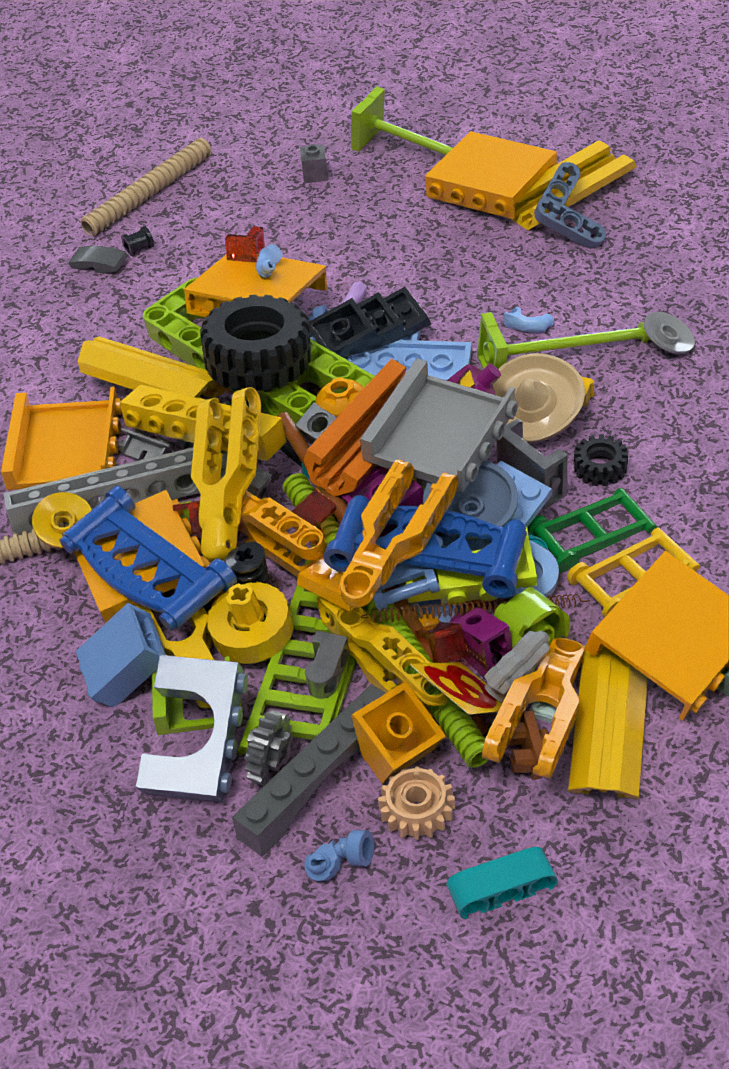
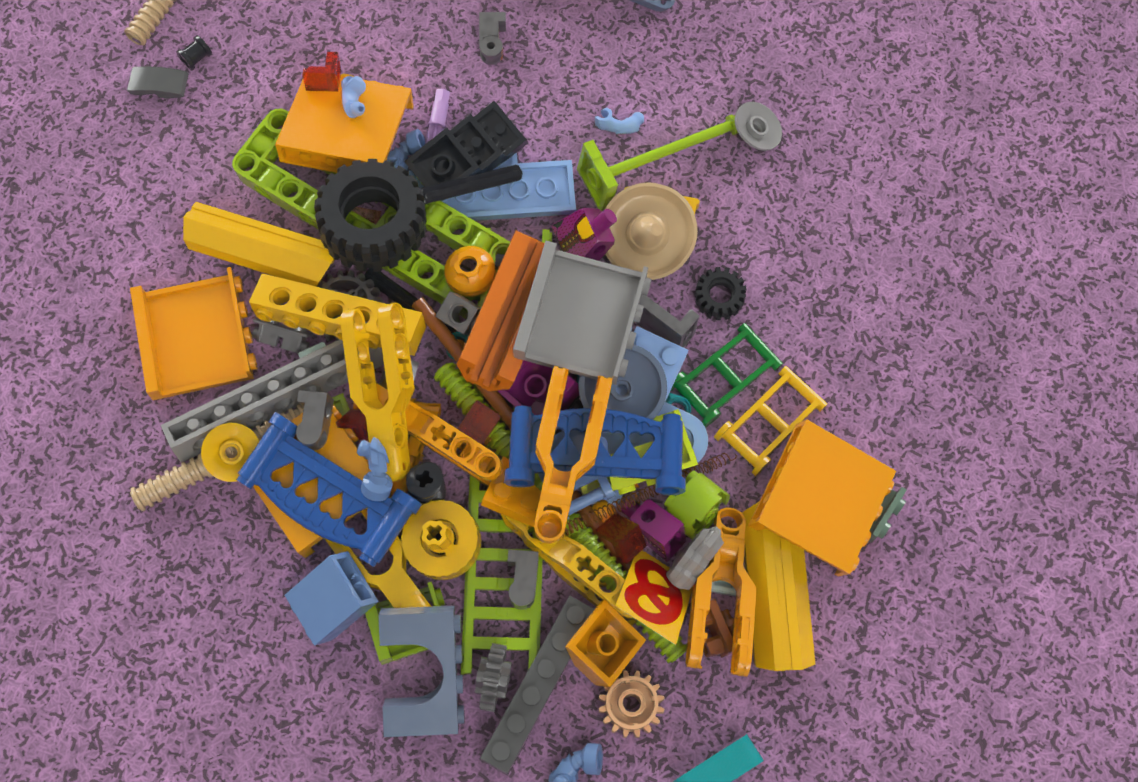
camera: 20 degrees left, 25 degrees up
(153, 497) = (316, 418): none -> flat silver leg
(195, 551) = (375, 484): none -> medium blue arm
(366, 342) = (471, 183): none -> black axle
(416, 247) = (490, 45): none -> flat silver leg

